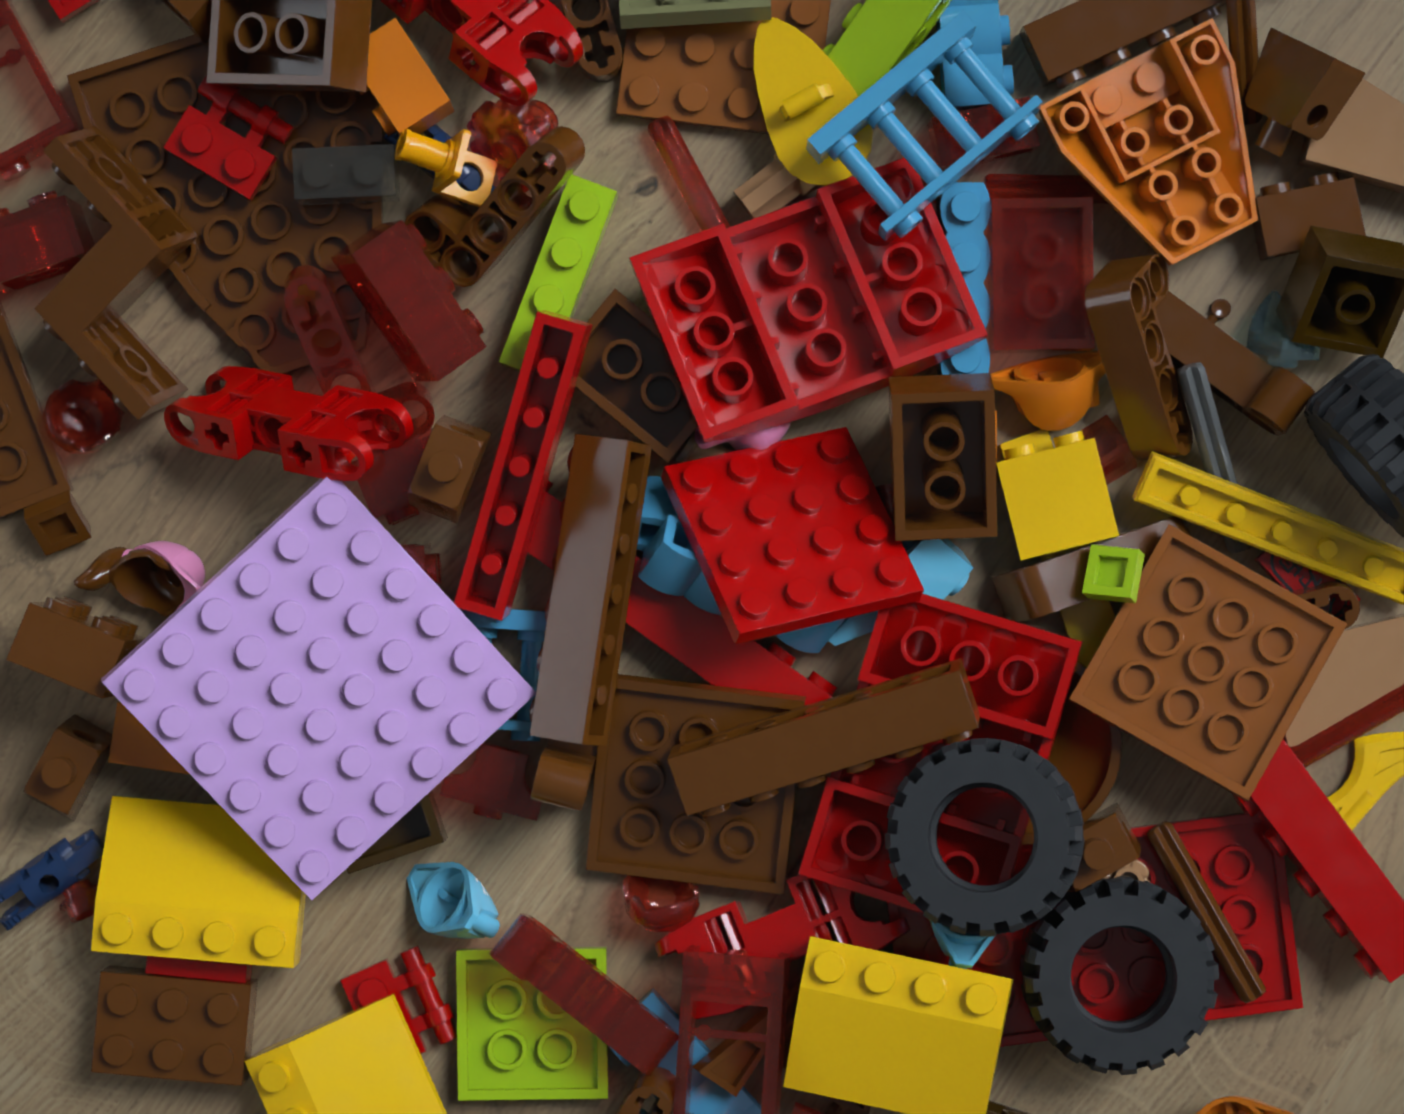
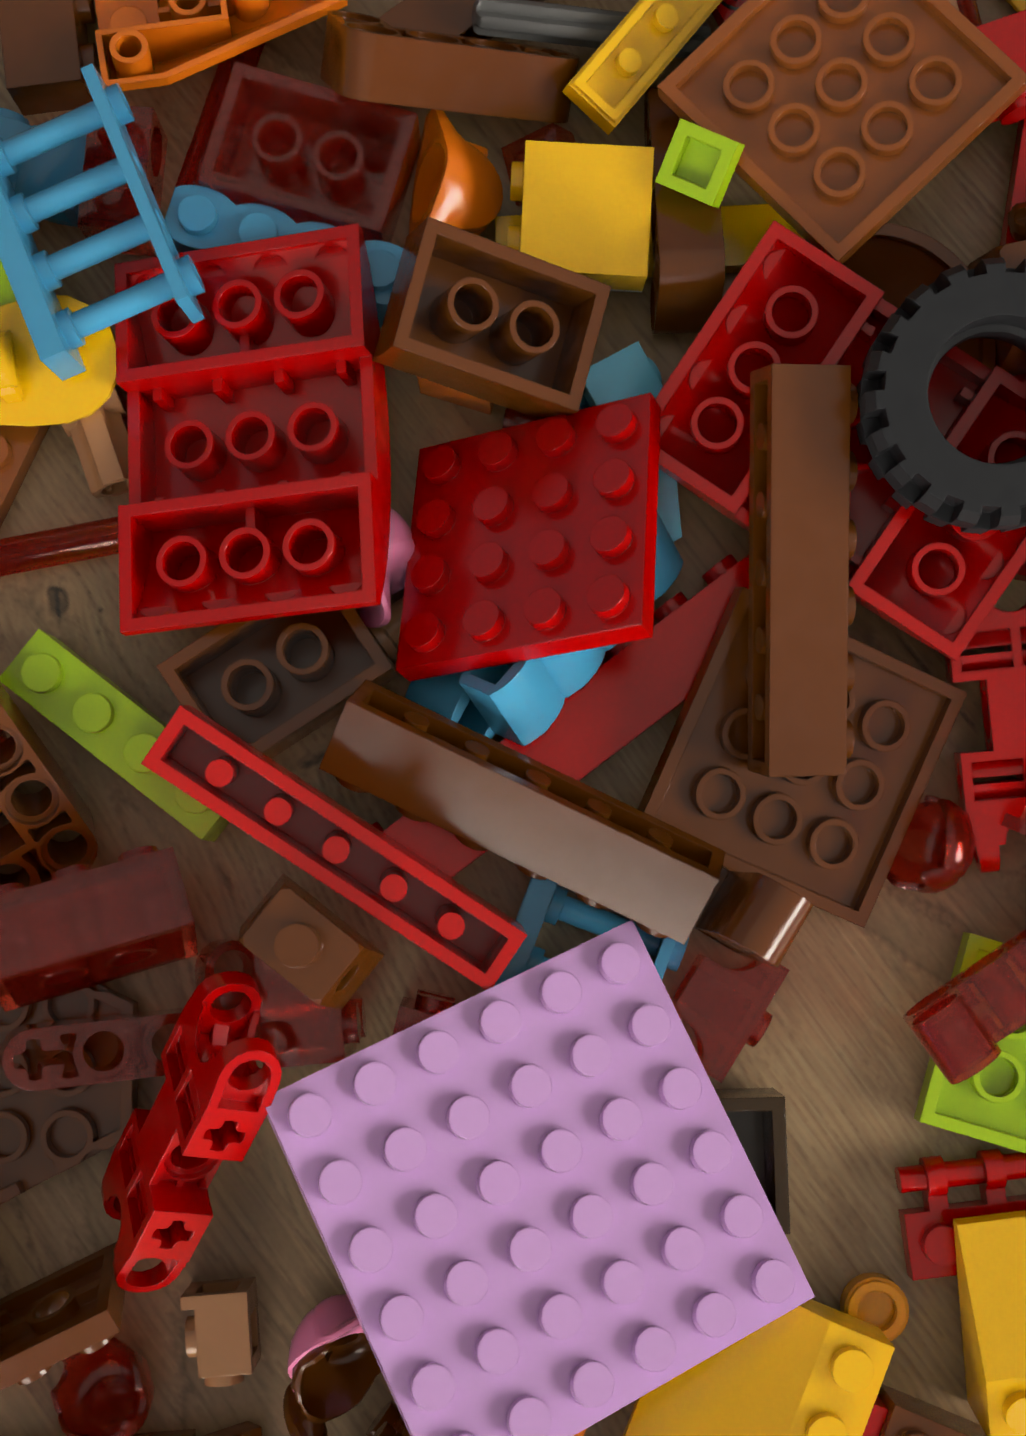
camera: 70 degrees left, 5 degrees down
(151, 488) = (223, 1329): none -> medium nougat brick
(316, 960) = (876, 1301): none -> light orange tile
(452, 901) = (859, 1108): medium azure hat -> none

